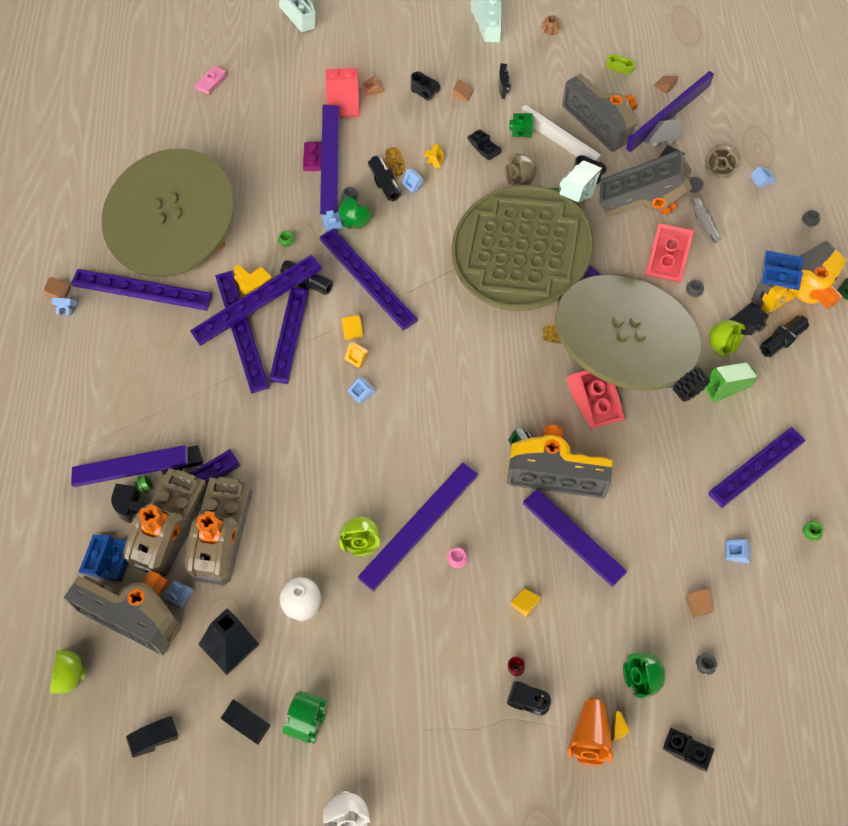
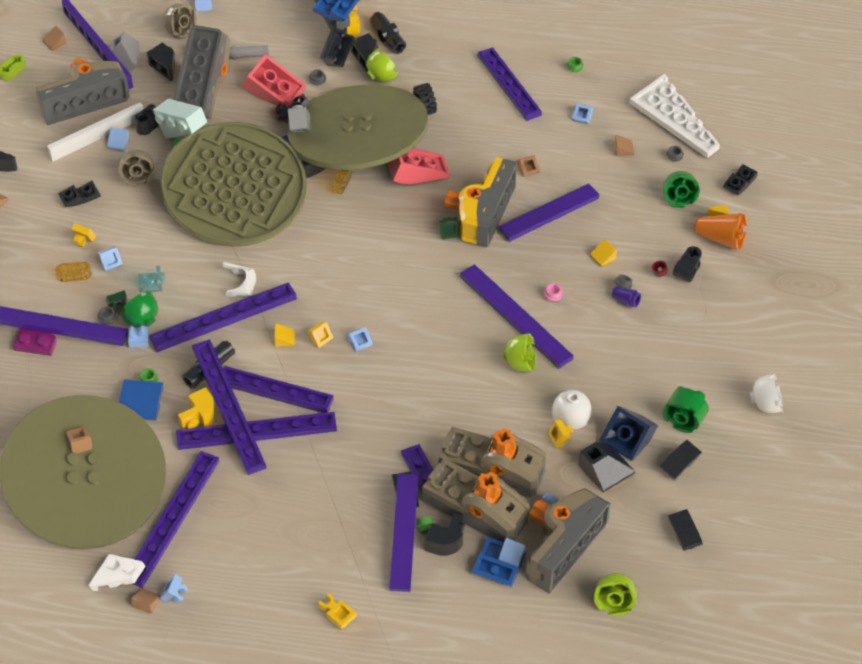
camera: 80 degrees left, 10 degrees down
(44, 432) = (337, 613): none -> yellow plate
(80, 262) = (117, 571): none -> white wing
(111, 565) = (512, 552): none -> light blue slope
(188, 196) = (79, 440): none -> medium nougat slope
(260, 238) = (142, 397): none -> blue slope
(265, 591) = (560, 433): none -> yellow tile
(274, 661) = (628, 432): none -> dark blue slope
(366, 196) = (116, 298): none -> dark green tile
(384, 178) = (96, 282): black piece -> none
(396, 216) = (151, 281): none -> clear light blue bracket
(412, 287) = (247, 287): none -> white helmet
(466, 636) = (627, 296): none -> dark purple cone
(486, 628) = (623, 281): none -> dark grey plate
(521, 125) = (70, 155): green brick -> none
(557, 155) = (118, 139): none -> light blue slope
(614, 277) = (299, 119): none -> light grey slope
(636, 505) = (528, 165): none -> medium nougat slope
(641, 273) = (281, 109): none -> black slope
(730, 380) = (427, 72): bright green slope -> none
(736, 292) = (337, 47): none -> black hinge
(774, 651) = (674, 114): none -> white wing

